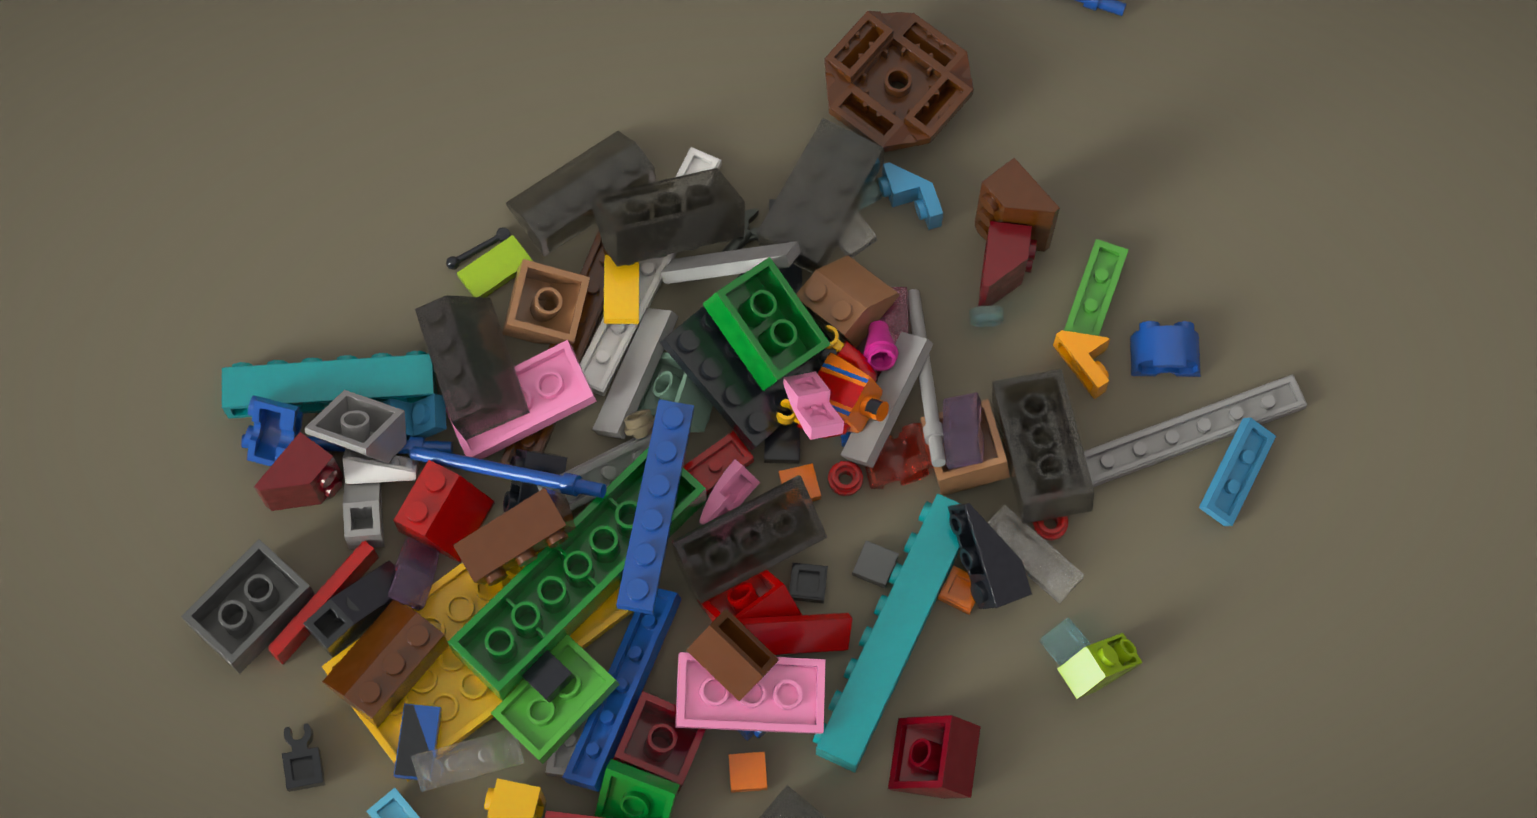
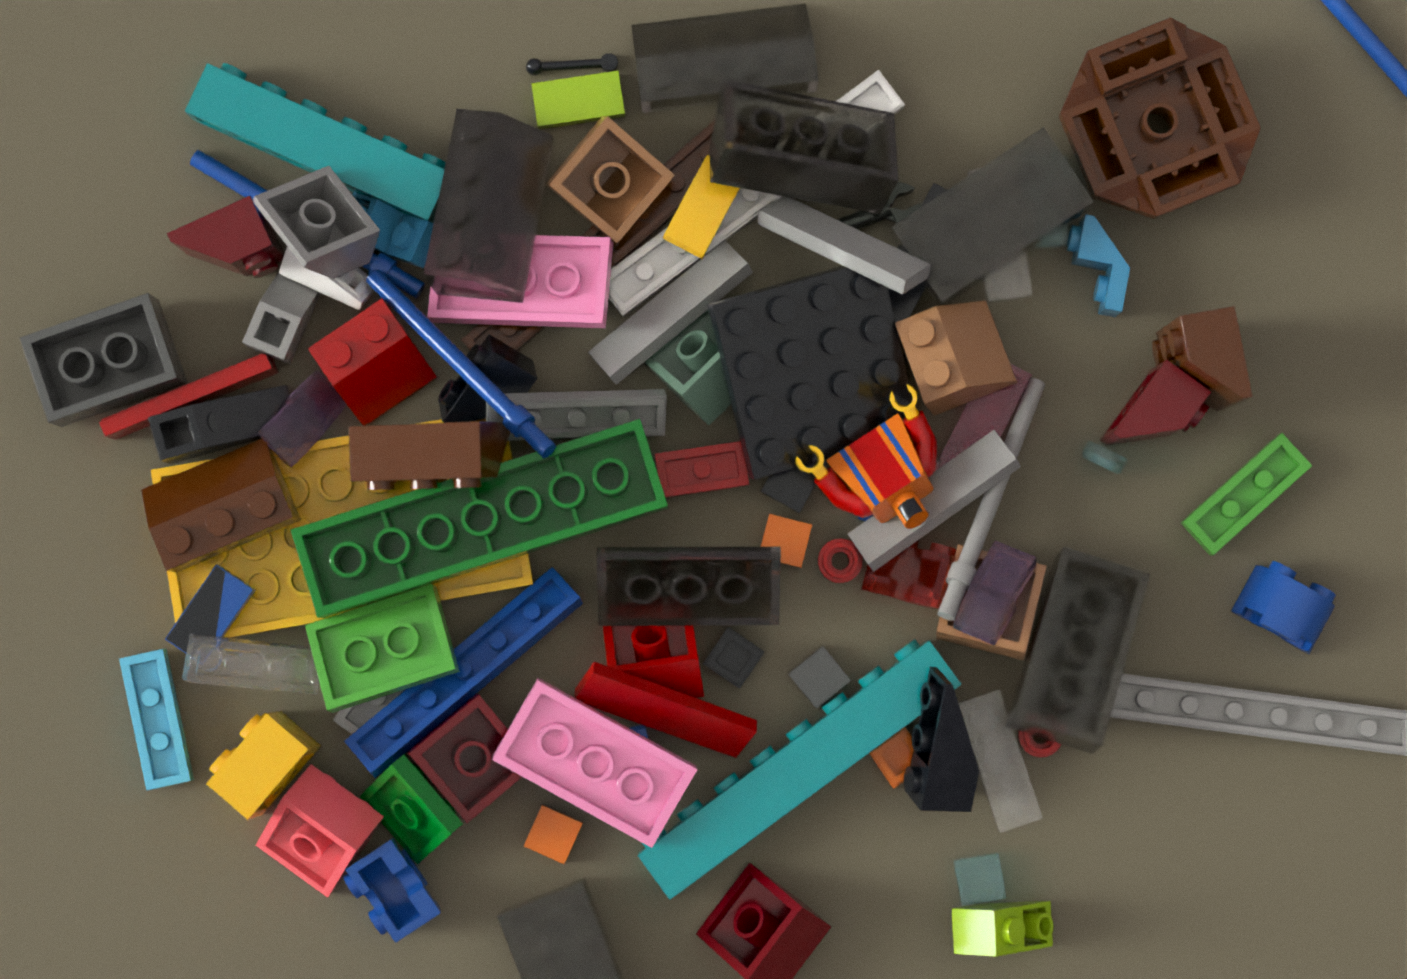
camera: 30 degrees right, 15 degrees up
(273, 429) = (225, 168): blue cylinder -> none
(304, 764) = (78, 569): black plate -> none
(548, 676) = (384, 622): black tile -> none
(639, 424) = (640, 380): dark tan plate -> none
(655, 507) = (599, 498): blue plate -> none
(729, 491) = (684, 521): bright pink slope -> none
(732, 654) = (593, 717): reddish brown brick -> none
(766, 323) = (838, 351): green brick -> none
(811, 405) = (839, 472): bright pink slope -> none
(880, 346) = (959, 436): dark pink cone -> none
(1078, 353) = (1182, 556): light orange slope -> none
(1237, 472) = (1284, 792): dark azure plate -> none

